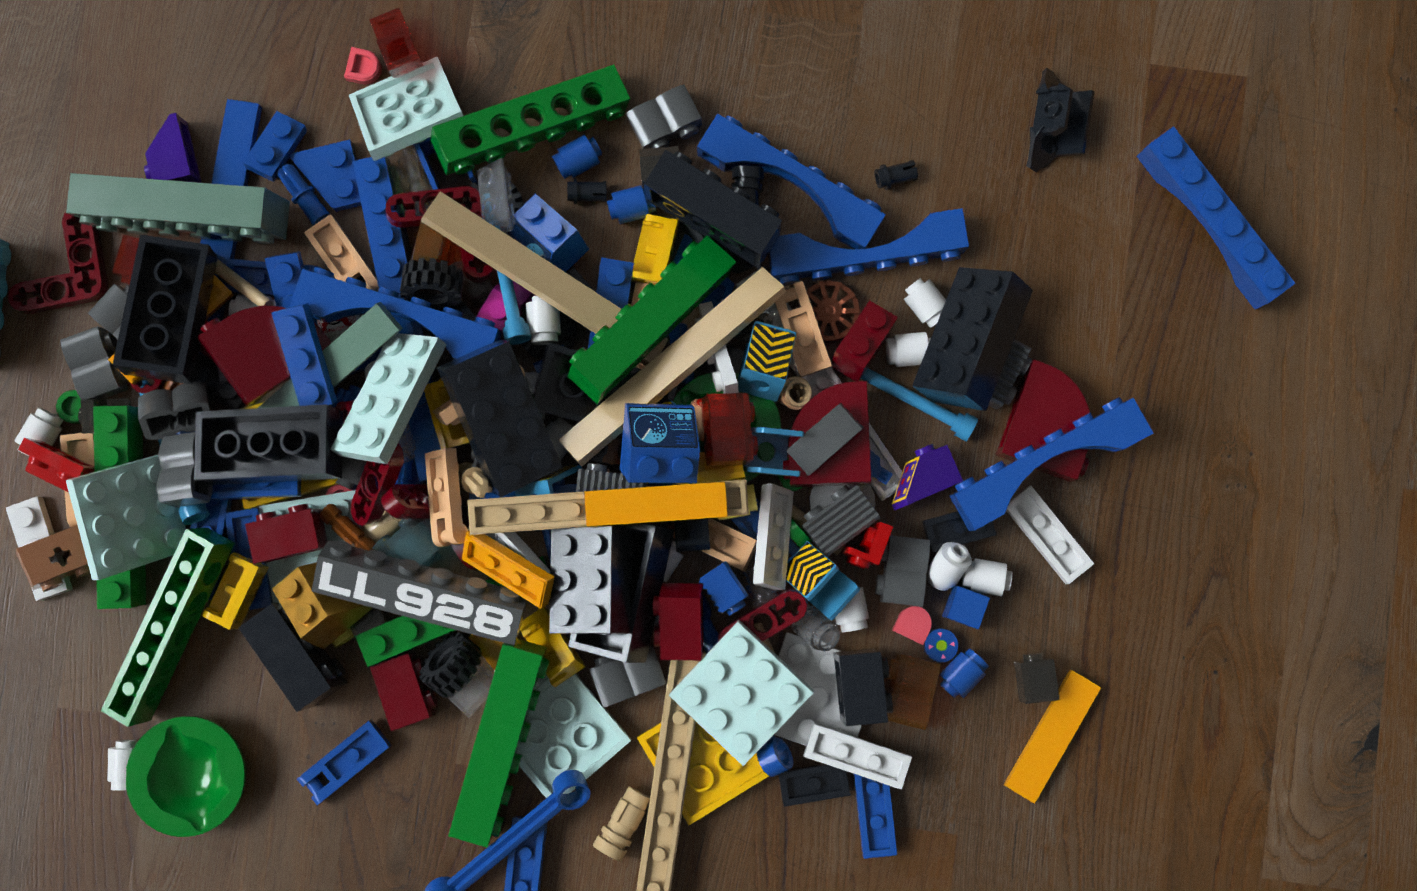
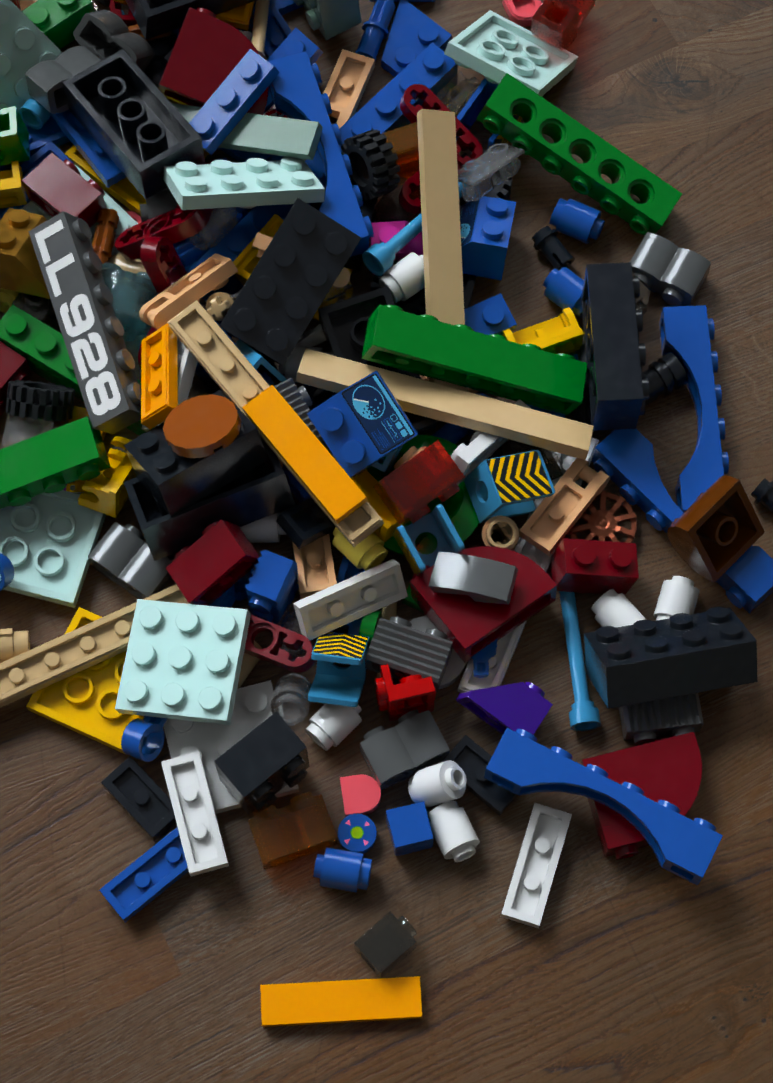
camera: 55 degrees right, 15 degrees down
(583, 568) = (201, 426): none -> dark orange tile
(902, 237) = (716, 528): none -> reddish brown brick

